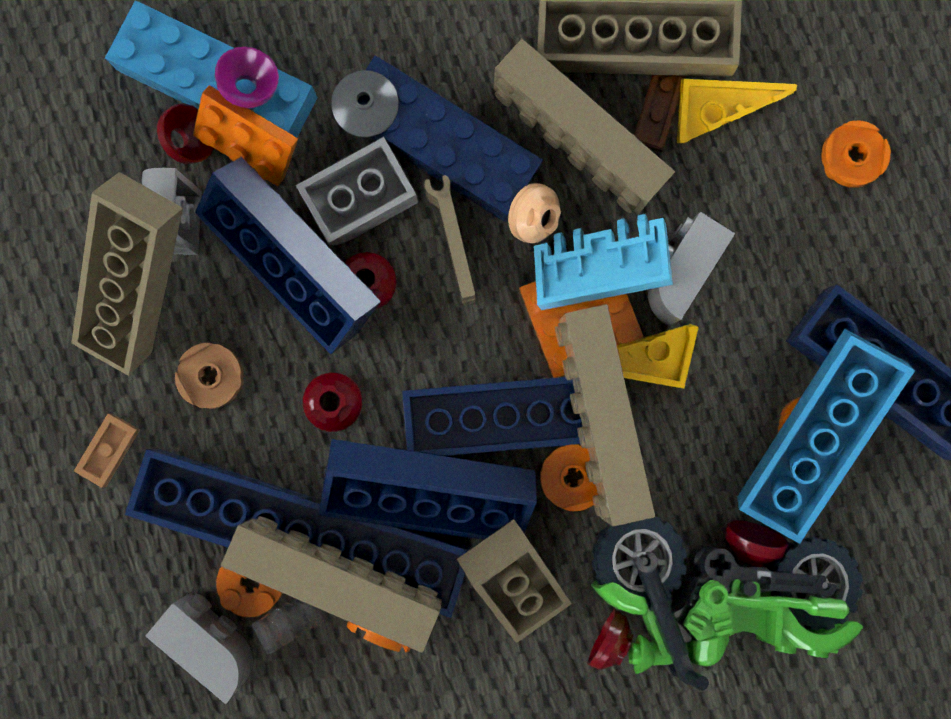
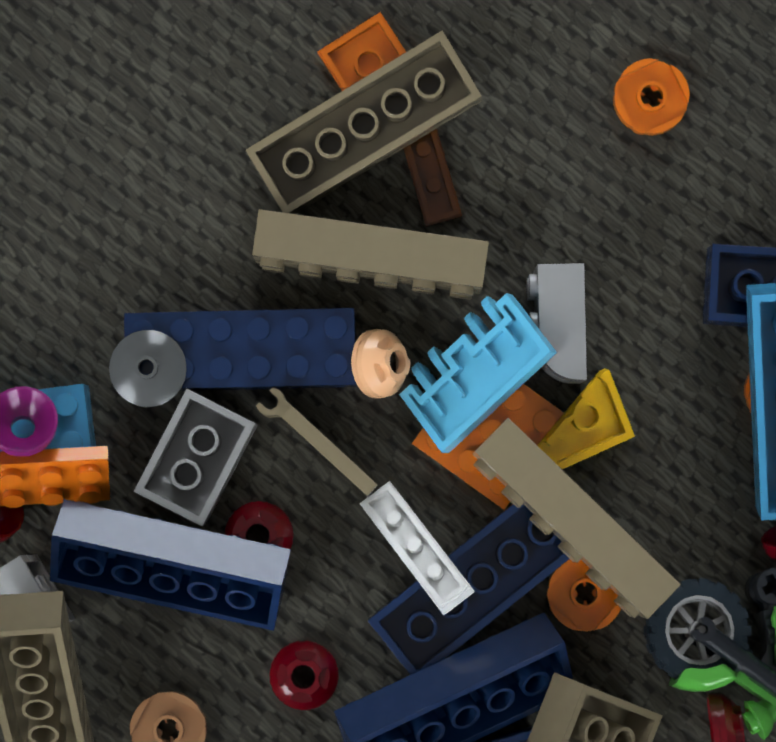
camera: 30 degrees left, 0 degrees up
(473, 364) = (417, 548): none -> white tile
(713, 103) = (480, 139): yellow wing -> none

